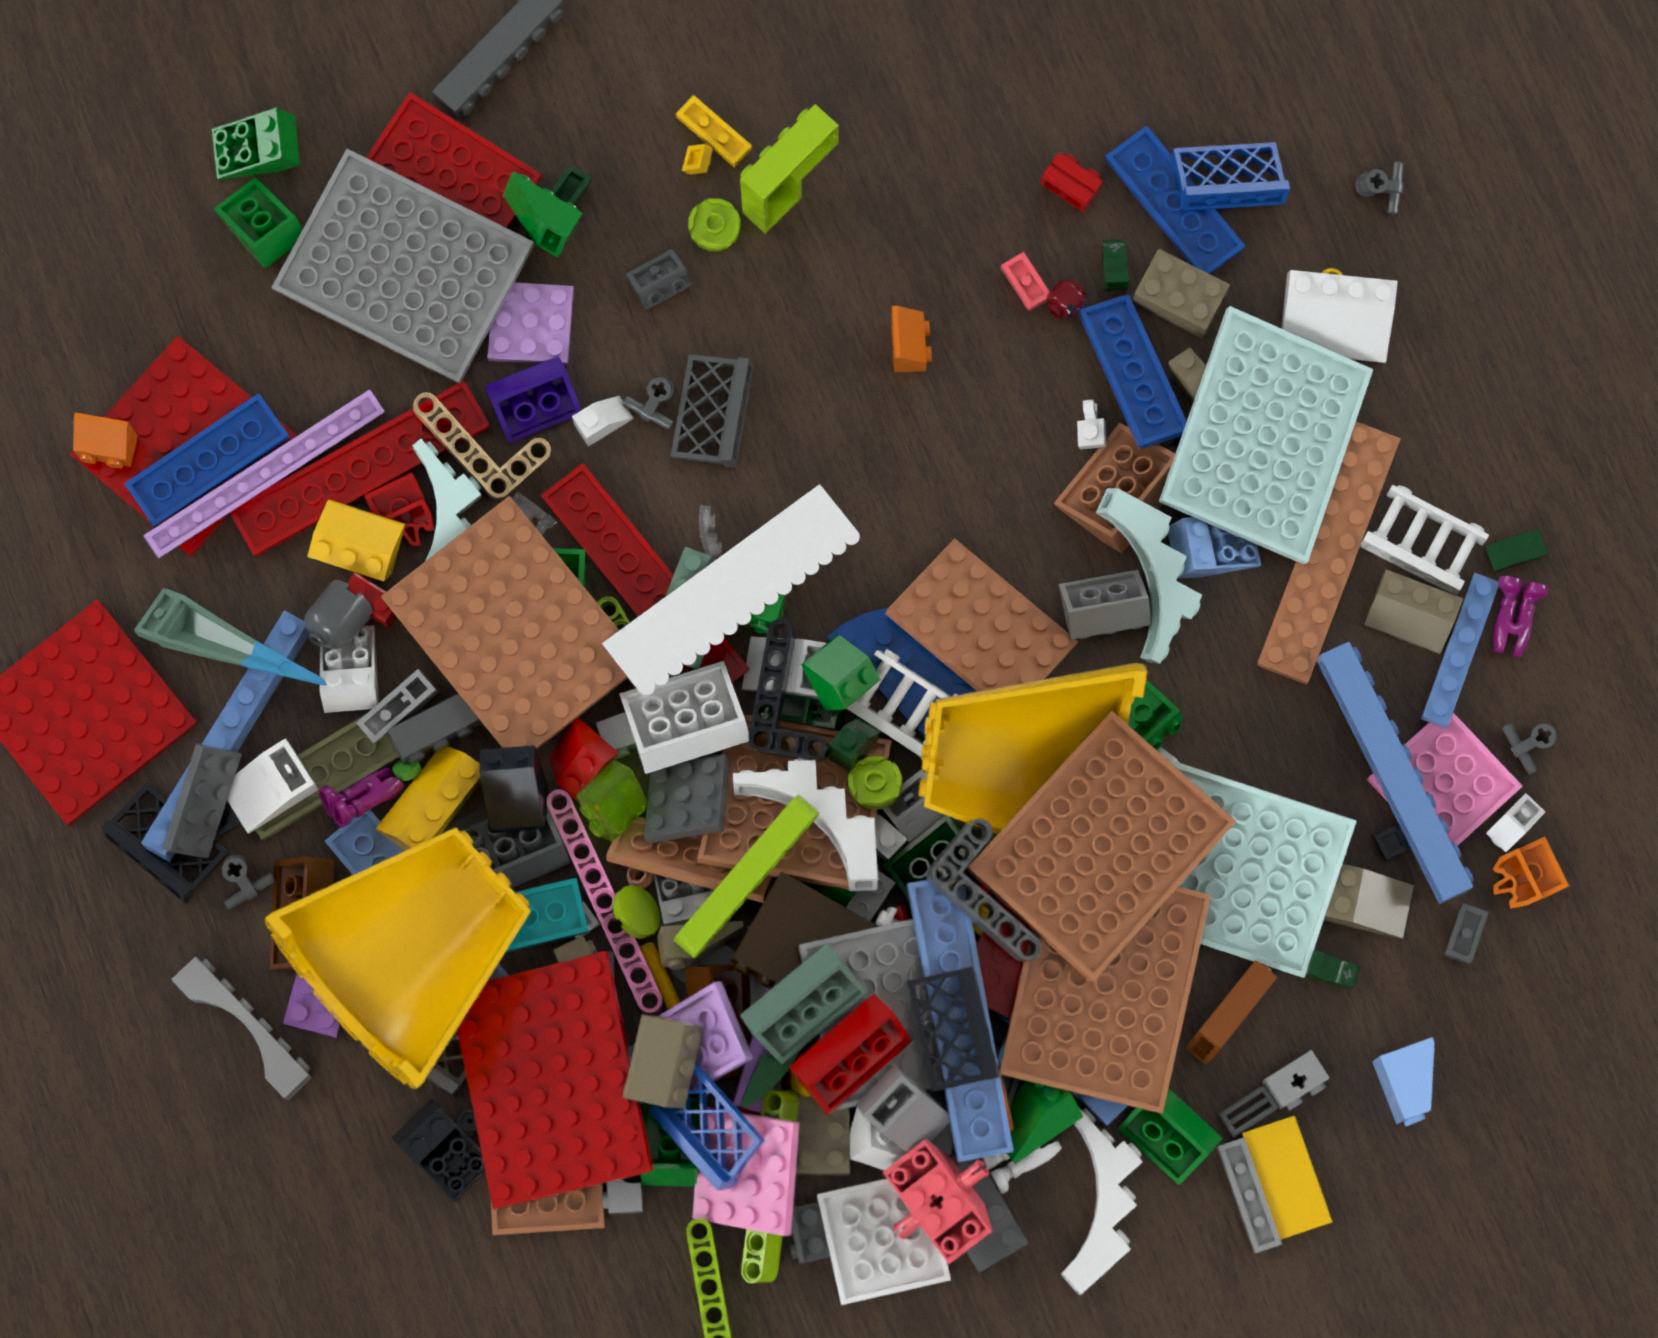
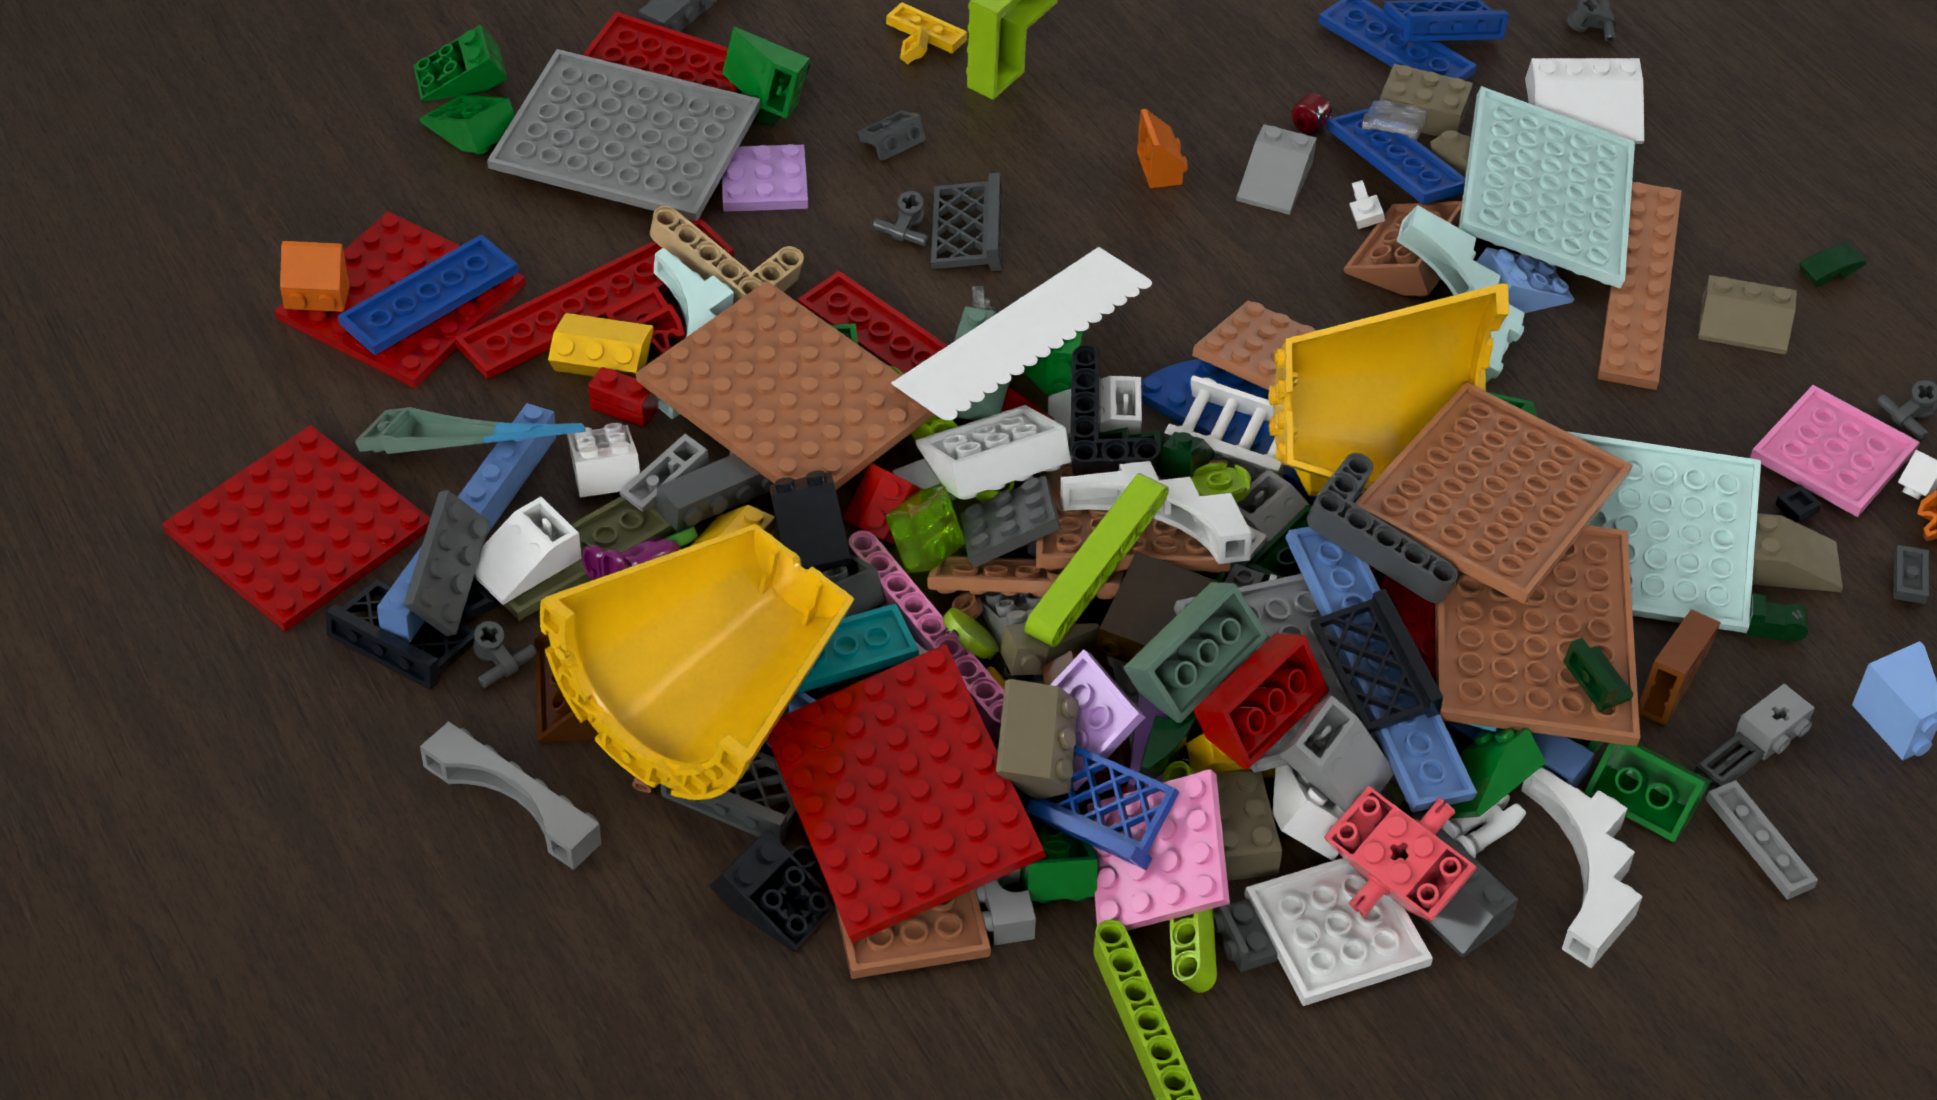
camera: 10 degrees left, 30 degrees down
(263, 474) = (489, 302): lavender plate -> none
(308, 1012) = (593, 772): medium lavender plate -> none
(337, 616) = (589, 398): dark grey cylinder -> none
(533, 399) = (777, 224): dark purple slope -> none
(601, 419) = (848, 239): white slope -> none
(714, 224) = (940, 94): lime tile -> none
(840, 673) = (1158, 397): green slope -> none
(1016, 372) = (1277, 169): none -> light grey slope
(1025, 281) = (1265, 107): coral plate -> none
(1072, 181) = (1291, 35): red brick -> none
(1114, 265) = (1350, 87): dark green leg -> none
(1142, 1051) = (1596, 675): none -> dark green panel
(1144, 318) = (1395, 118): none -> clear plate
(1287, 1177) = (1802, 819): yellow tile -> none
(1395, 773) = (1784, 437): medium blue brick -> none
(1402, 554) = (1726, 238): white fence -> none
(1460, 650) = (1808, 342): medium blue plate -> none
(1504, 623) = (1862, 291): magenta piece -> none

